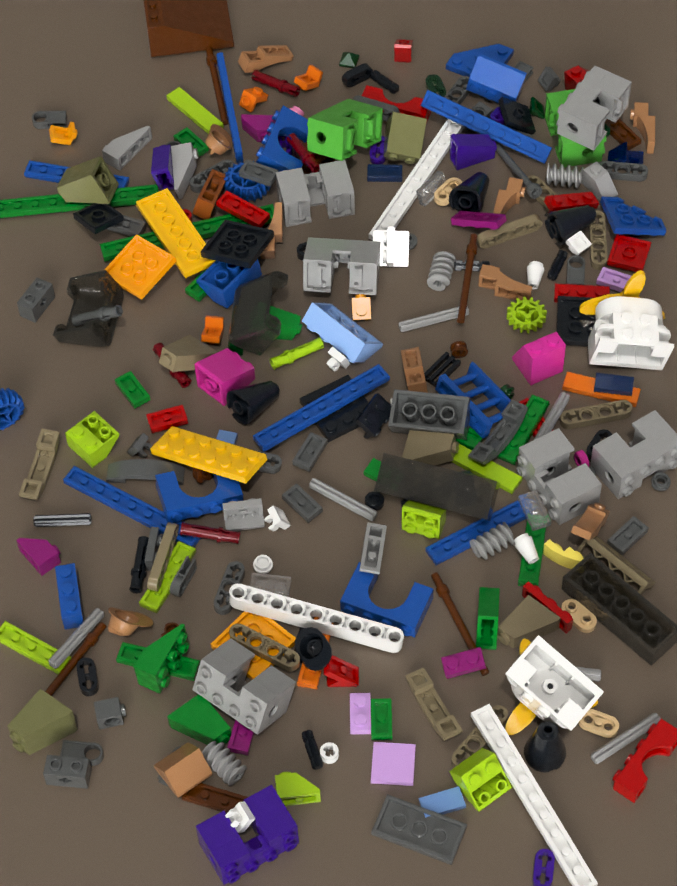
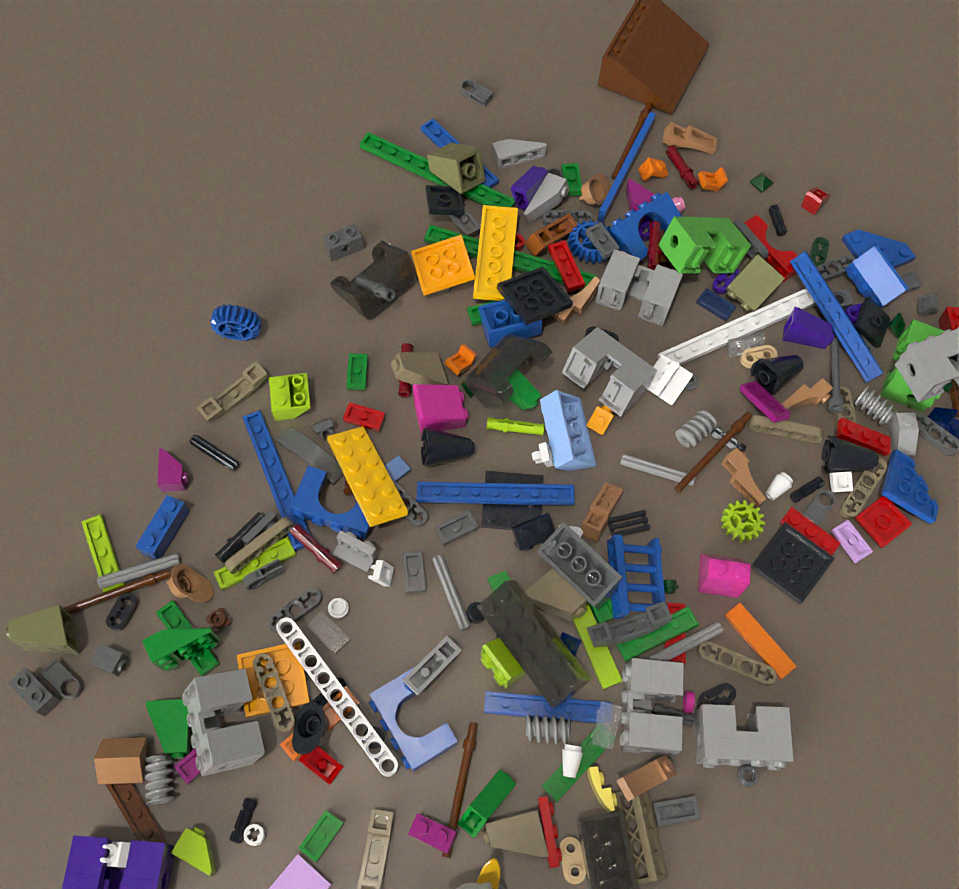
camera: 30 degrees right, 10 degrees up
(63, 135) = (475, 111): light orange bracket -> none
(193, 109) = (596, 150): lime tile -> none
(357, 75) = (757, 200): black beam -> none
(360, 713) = (309, 814): lavender plate -> none
(459, 349) = (657, 515): reddish brown bush -> none
(614, 384) = (773, 646): dark blue tile -> none
(628, 329) = (824, 602): white brick -> none

